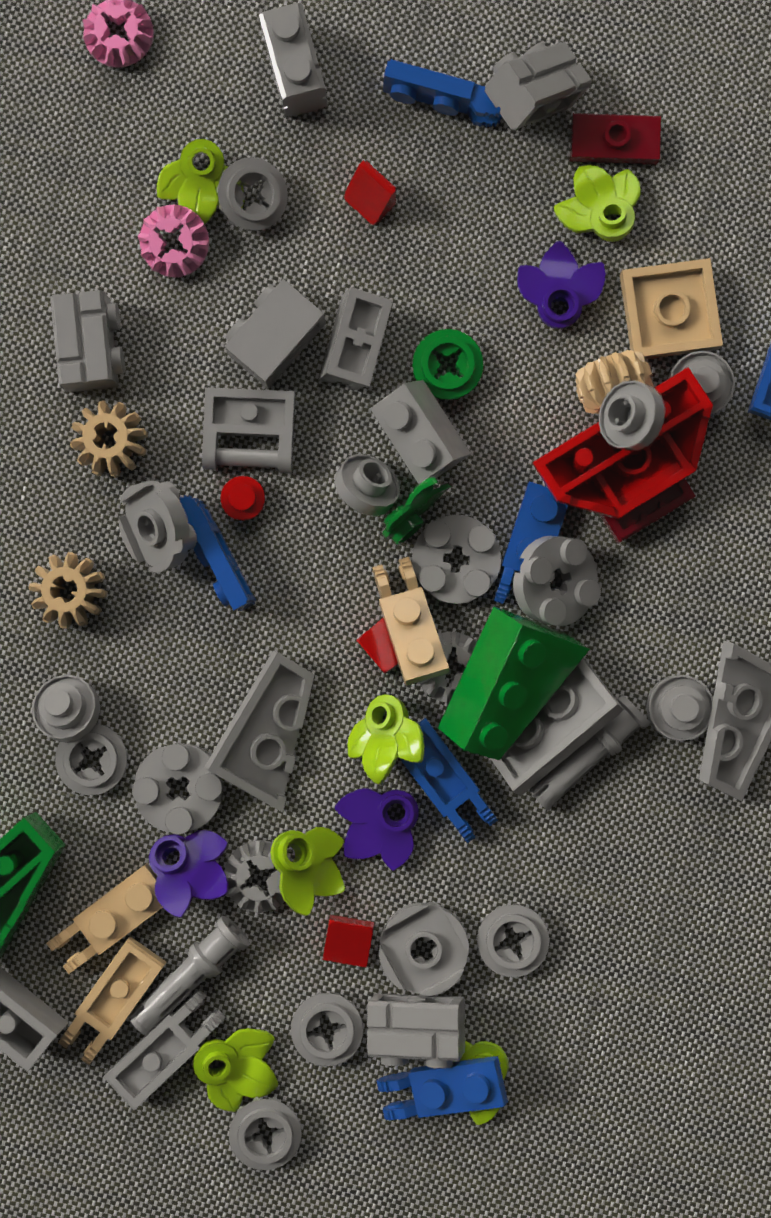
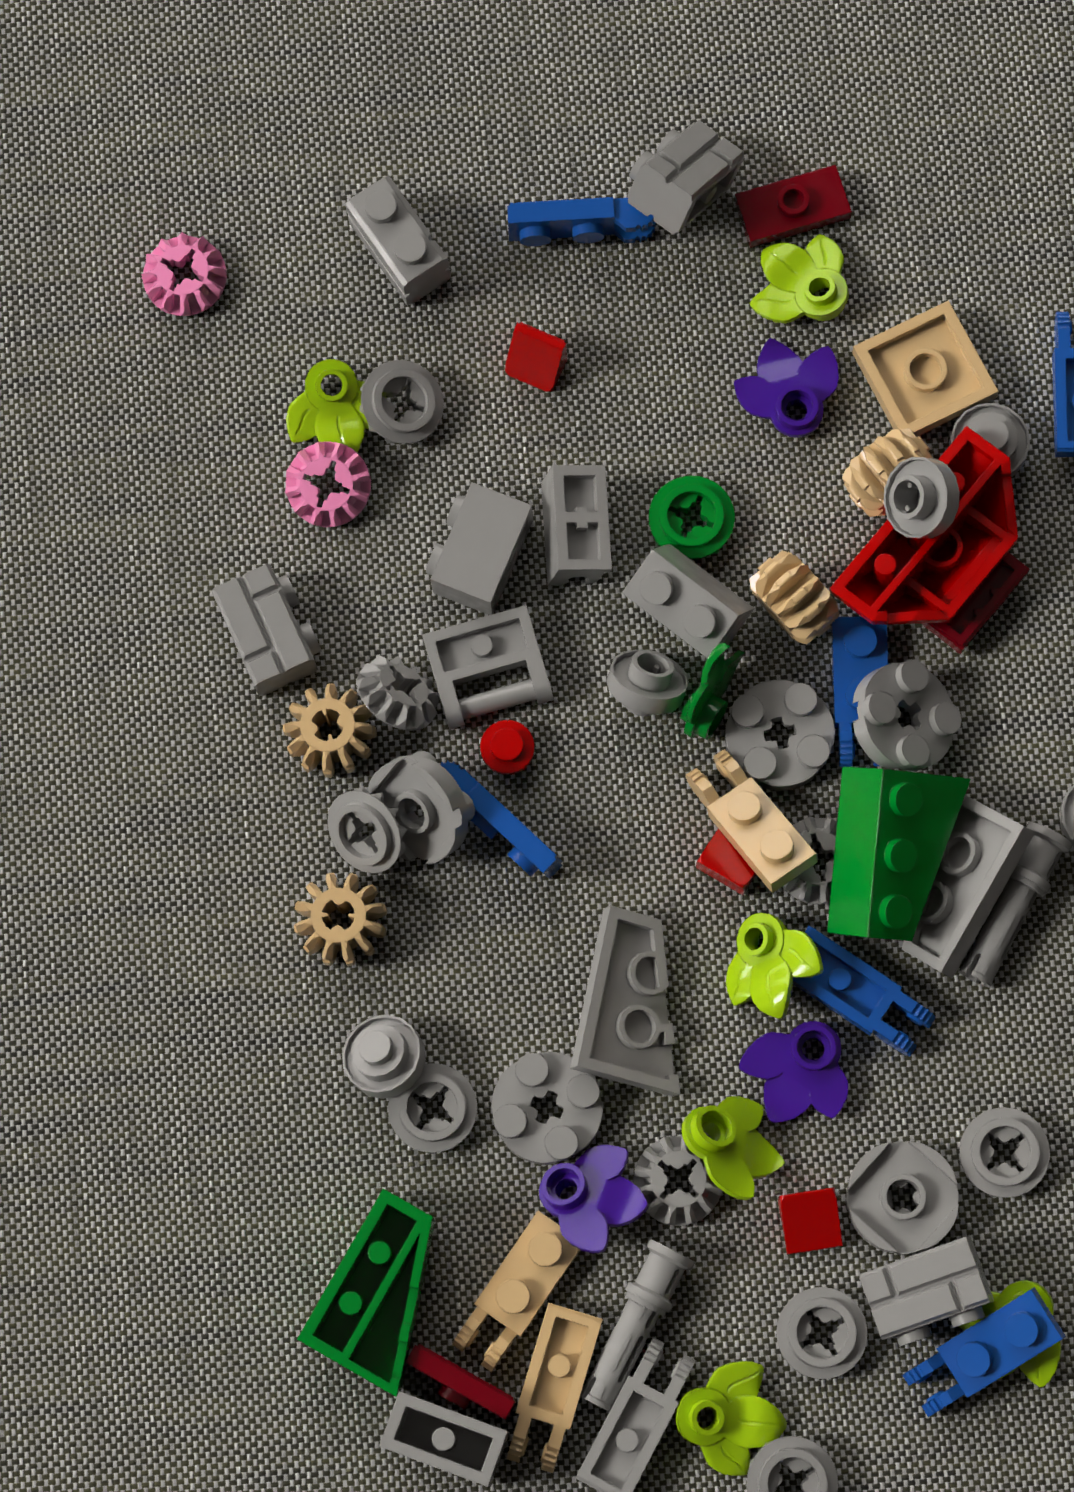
camera: 10 degrees left, 10 degrees down
(41, 977) = (460, 1385): none -> dark red plate
(110, 545) = (372, 852): none -> light grey gear
(163, 439) = (394, 706): none -> light grey gear
(504, 457) = (794, 597): none -> tan gear

